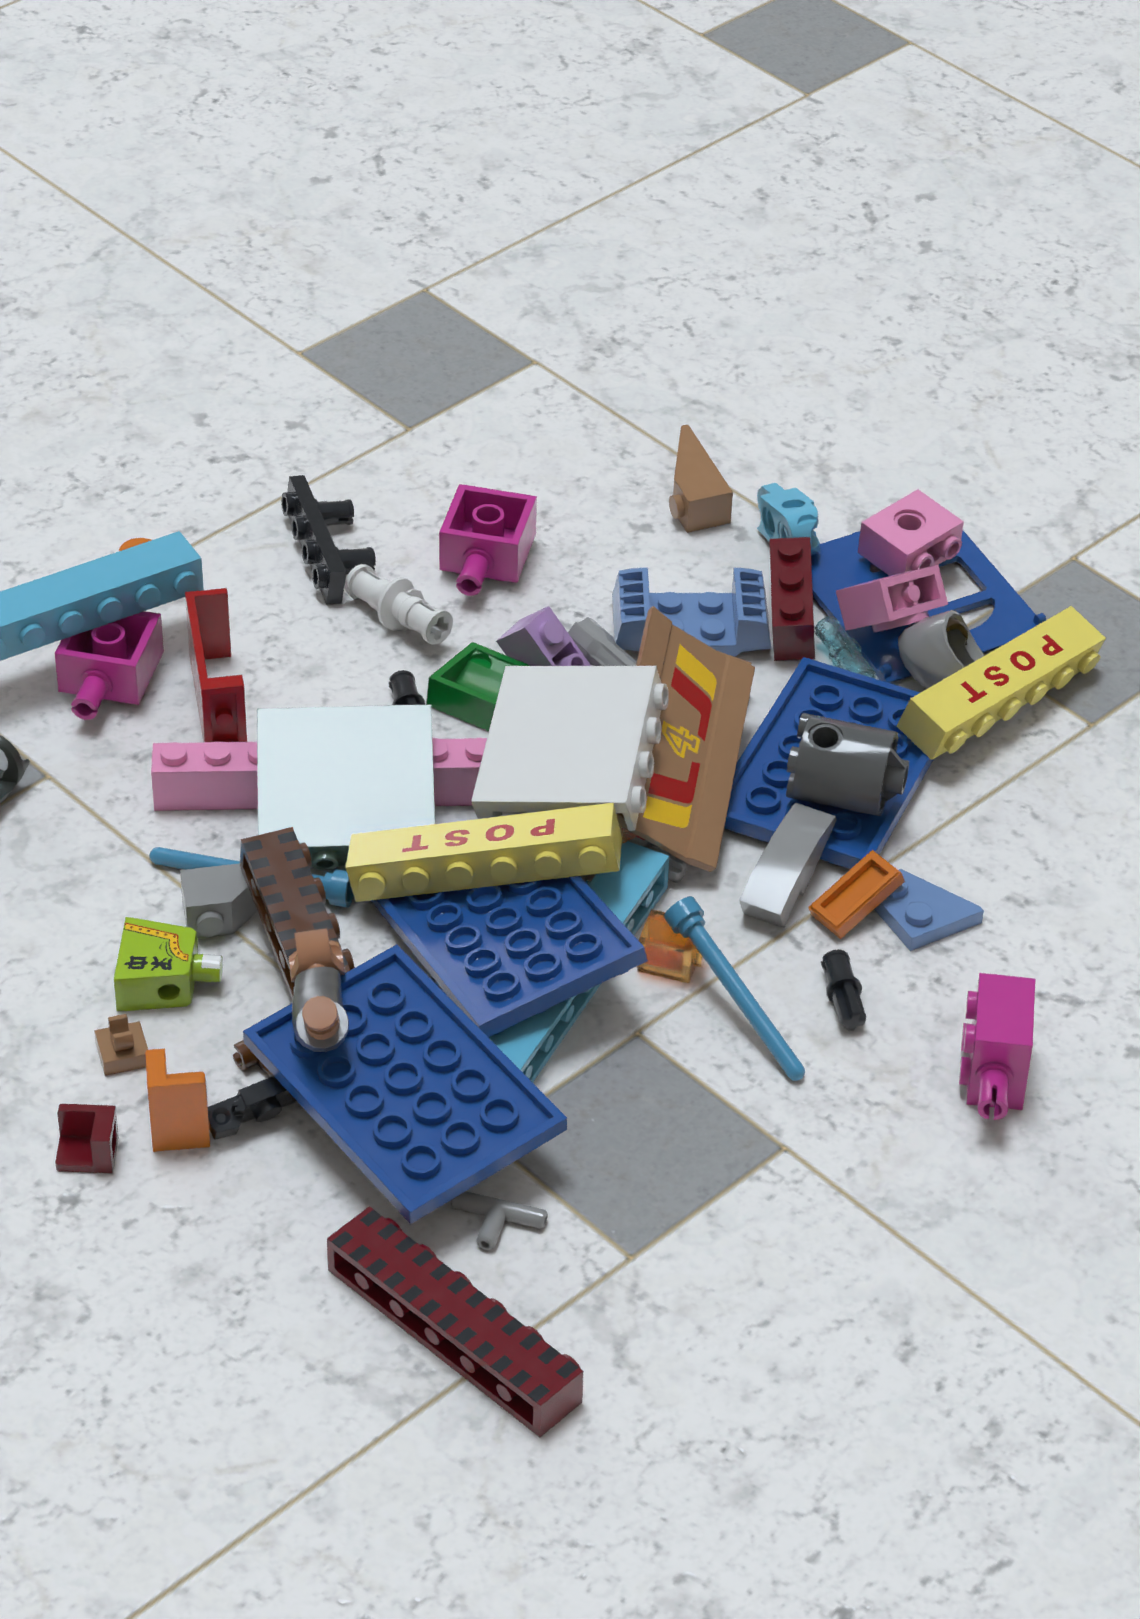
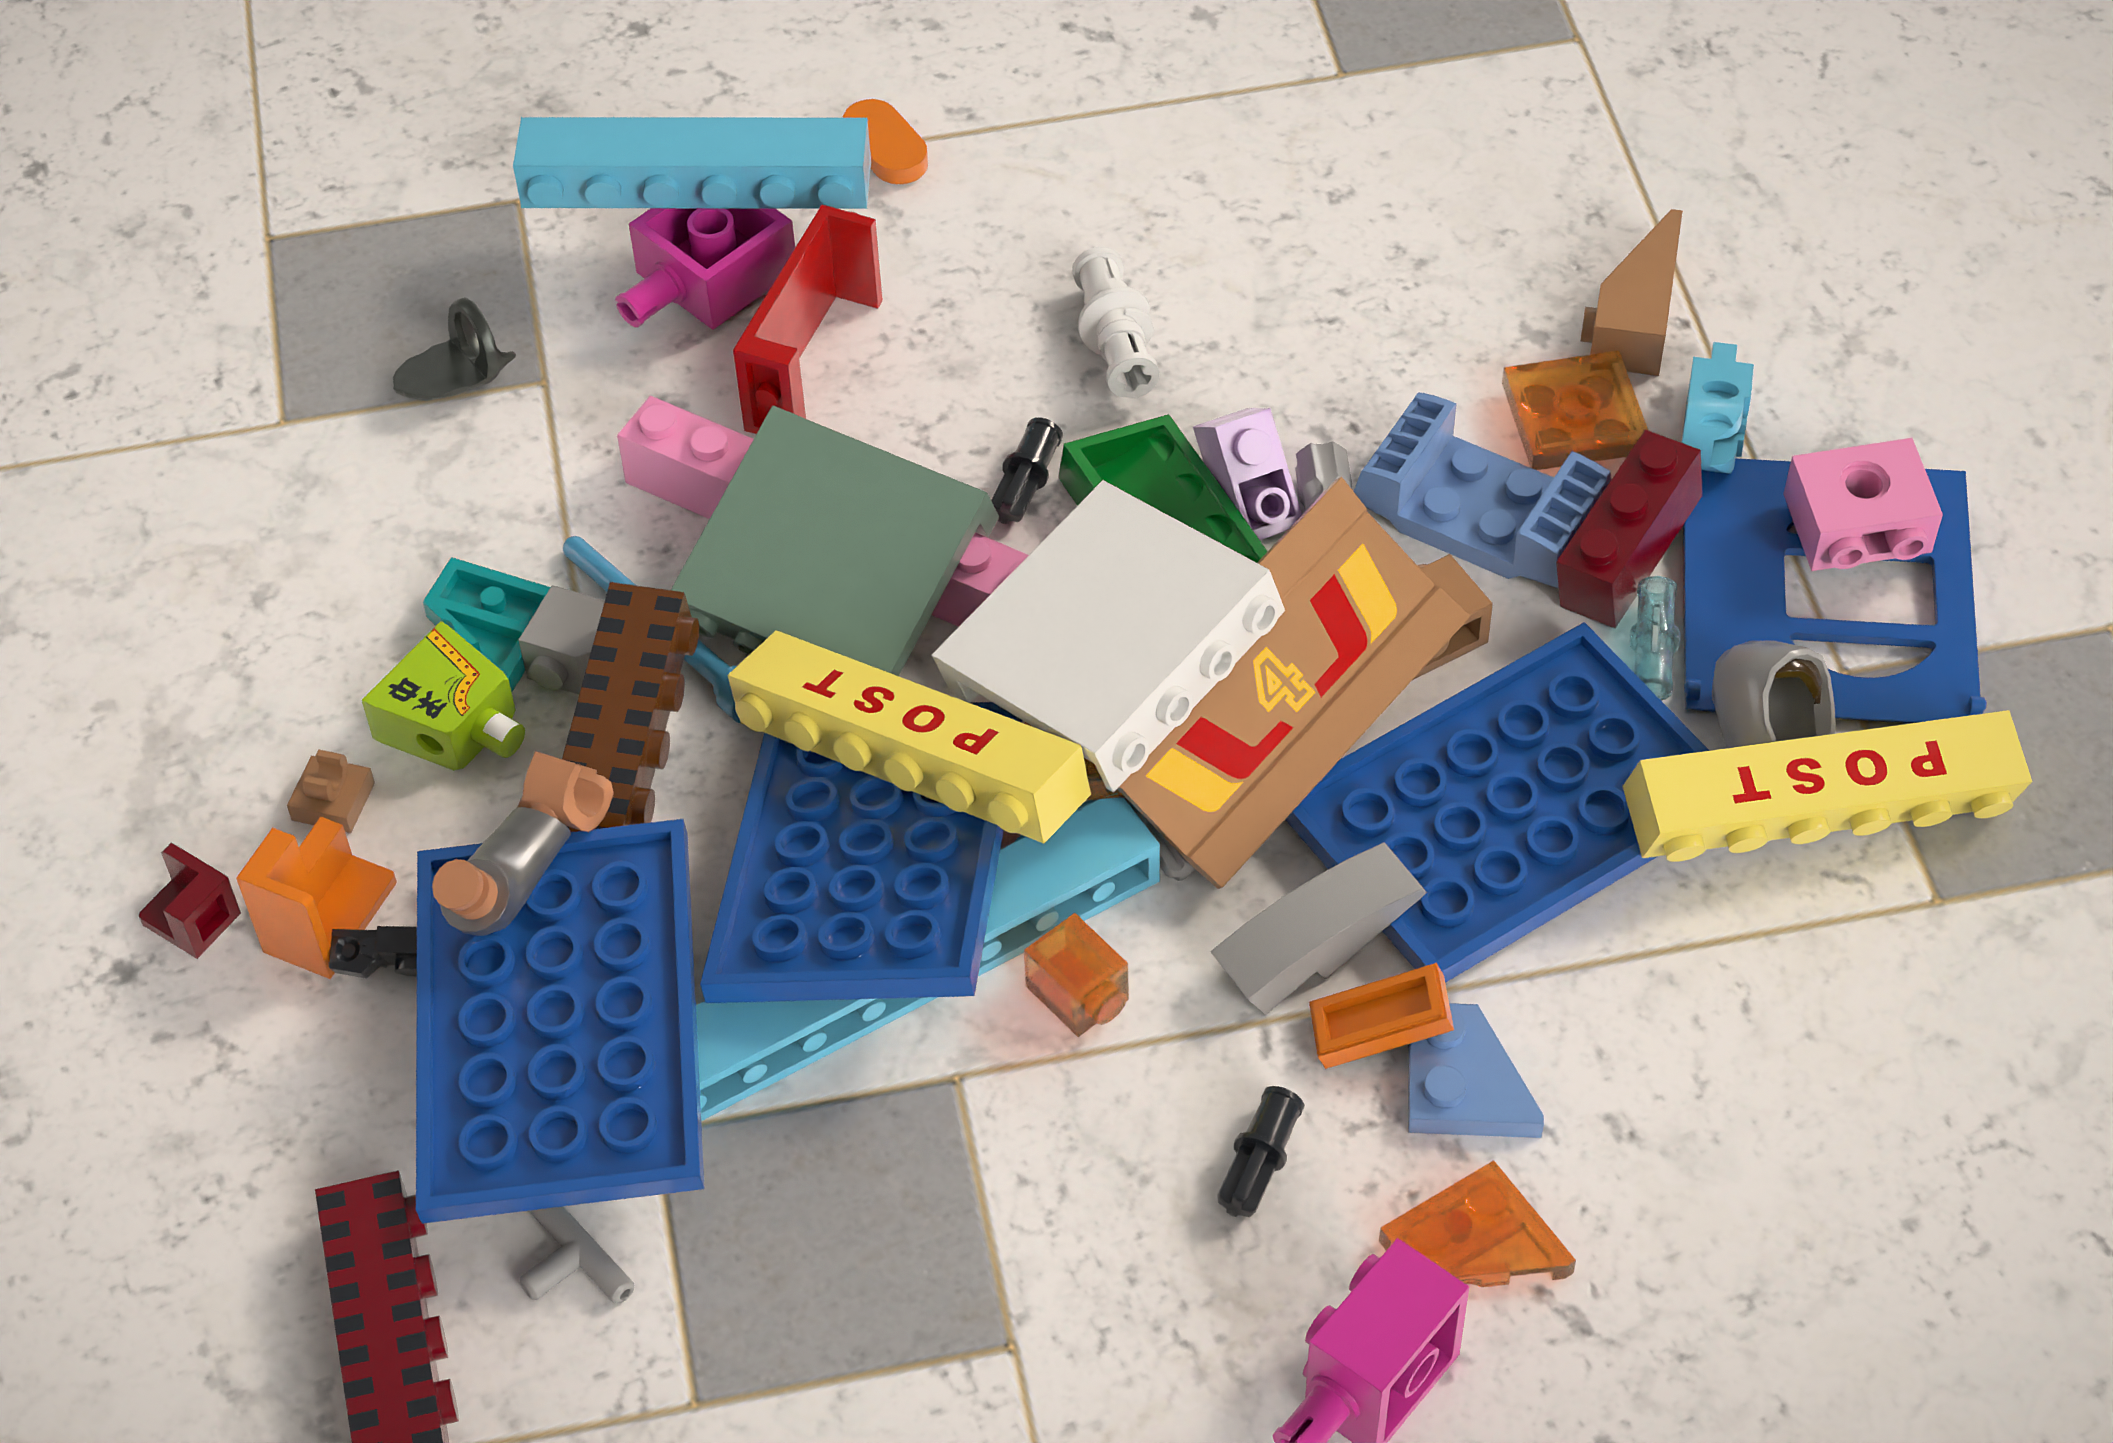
camera: 35 degrees right, 10 degrees up
(145, 899) = (486, 611): none -> teal wing
(309, 526) = (1076, 205): black plate -> none
(486, 536) = (1295, 270): dark pink brick -> none
(687, 919) = (1094, 954): dark azure piece -> none
(704, 553) = (1575, 407): none -> clear orange plate
(845, 765) = (1478, 820): dark grey cylinder -> none
(892, 599) = (1752, 592): bright pink brick -> none
(990, 960) = (1482, 1232): none -> clear orange wing

